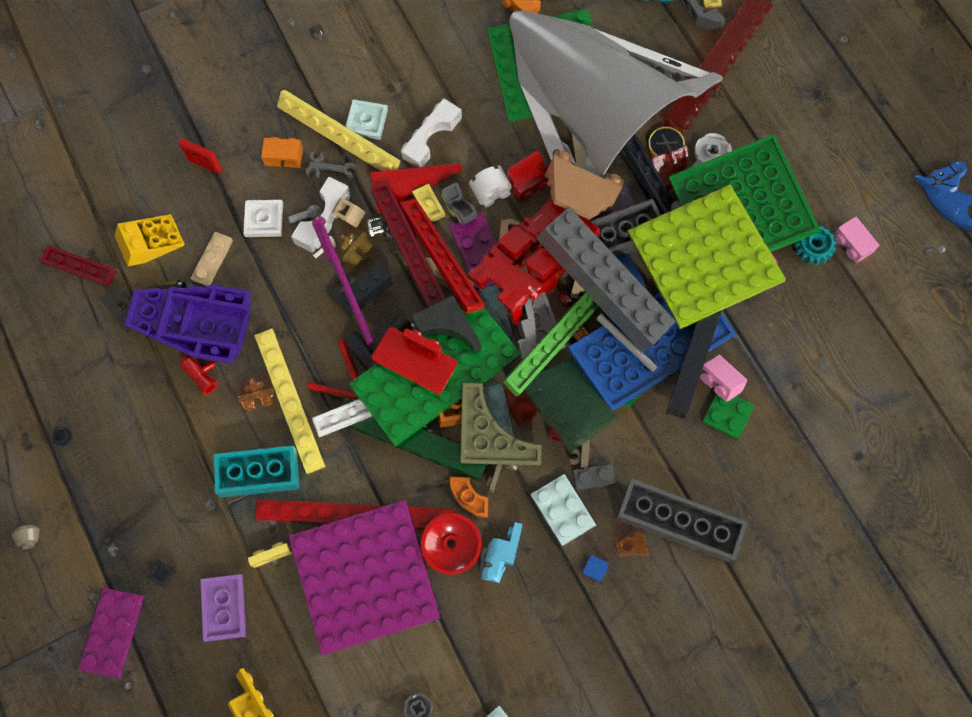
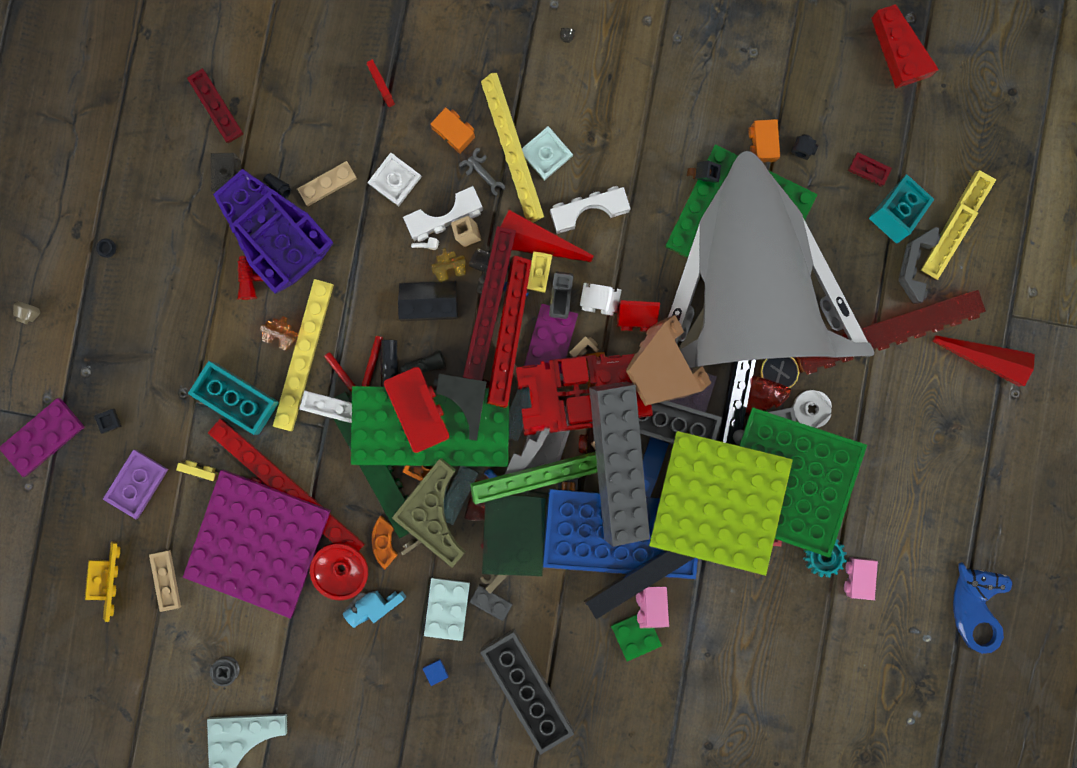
camera: 30 degrees right, 15 degrees up
(147, 239) = (288, 125): yellow slope -> none
(308, 670) = (165, 581): none -> tan plate
(312, 212) = (441, 204): light grey bar -> none
(318, 224) = (421, 260): magenta bar -> none
(495, 46) = (705, 171): none -> black piece
(627, 343) = (599, 522): light grey bar -> none
(637, 545) = (479, 682): clear orange plate -> none
(823, 21) = (1007, 363): none -> red wedge

